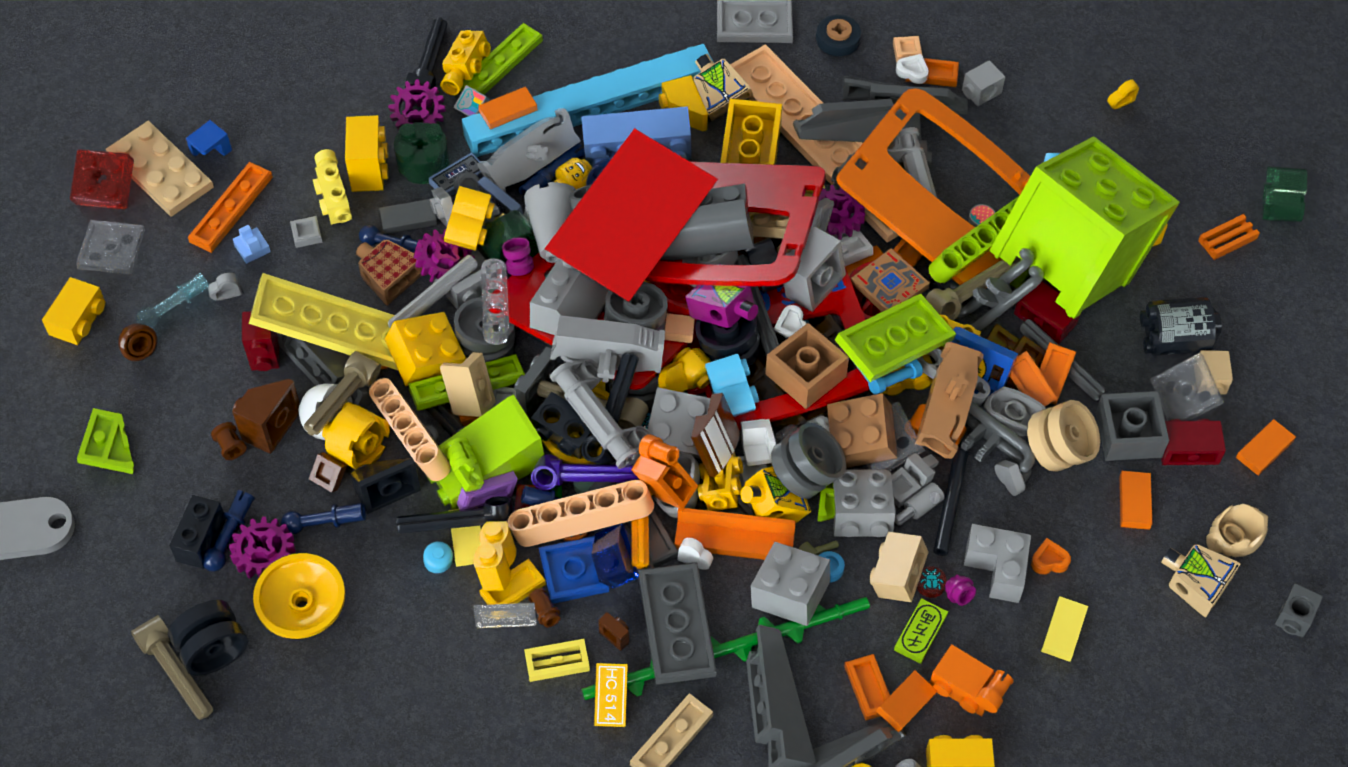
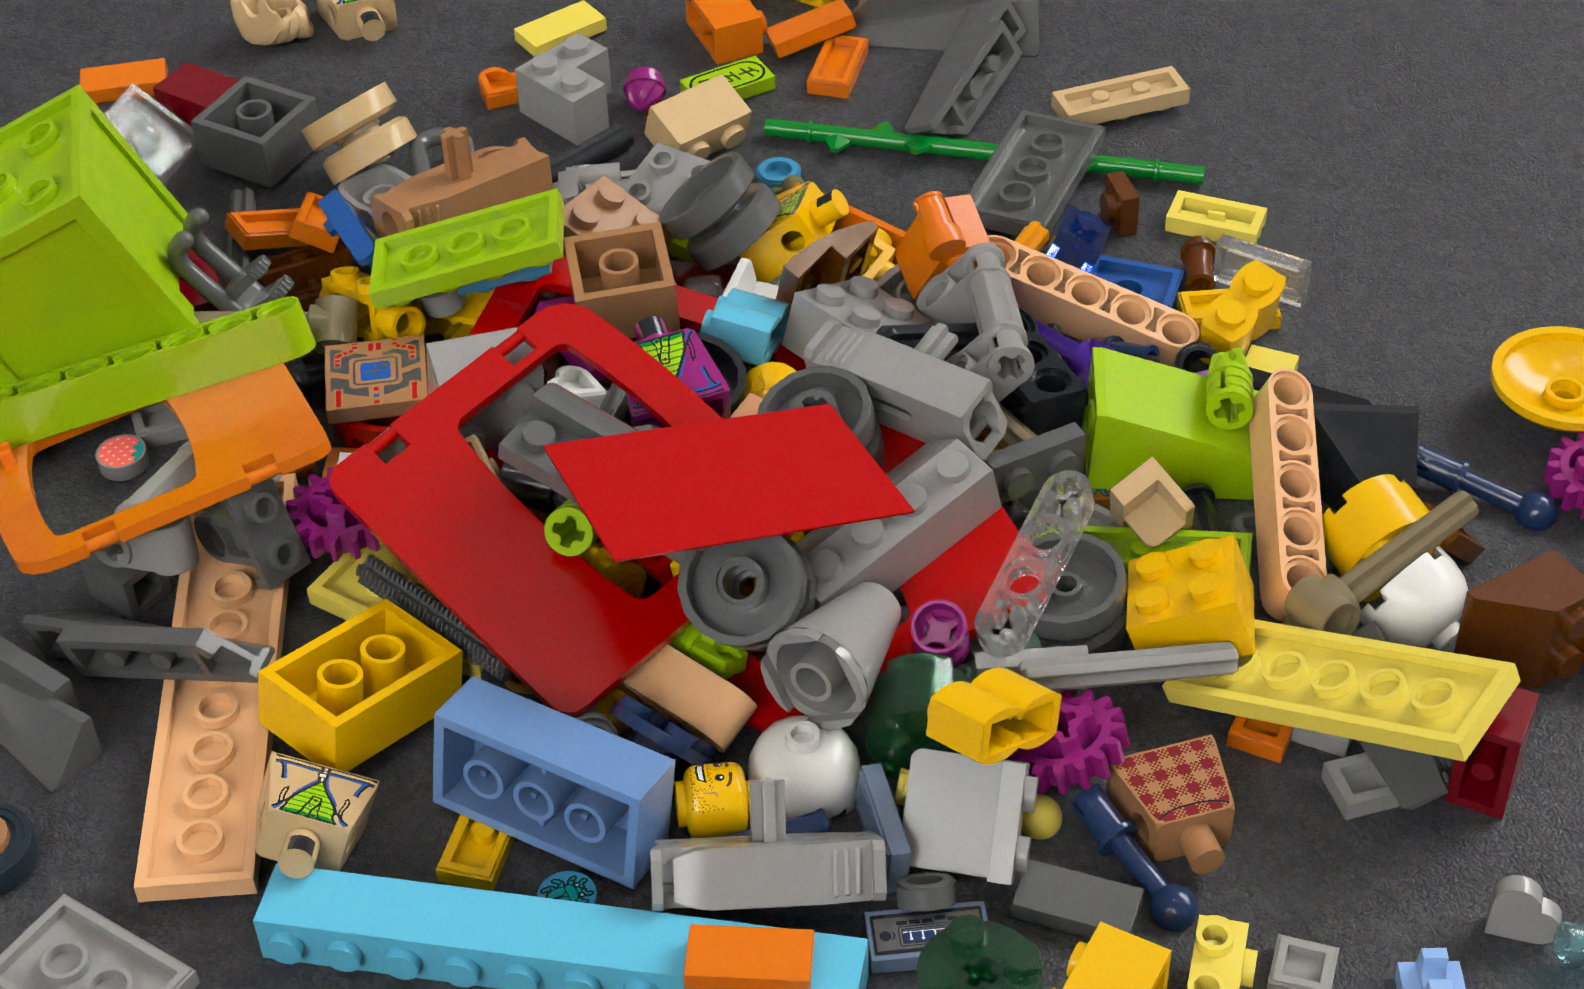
camera: 145 degrees left, 15 degrees down
(438, 557) = (1324, 370): medium azure piece -> none
(610, 695) = (1170, 148): yellow tile -> none
(683, 93) = (390, 840): yellow slope -> none
(790, 583) = (853, 145): light grey brick -> none
(1135, 500) = (343, 87): orange tile -> none

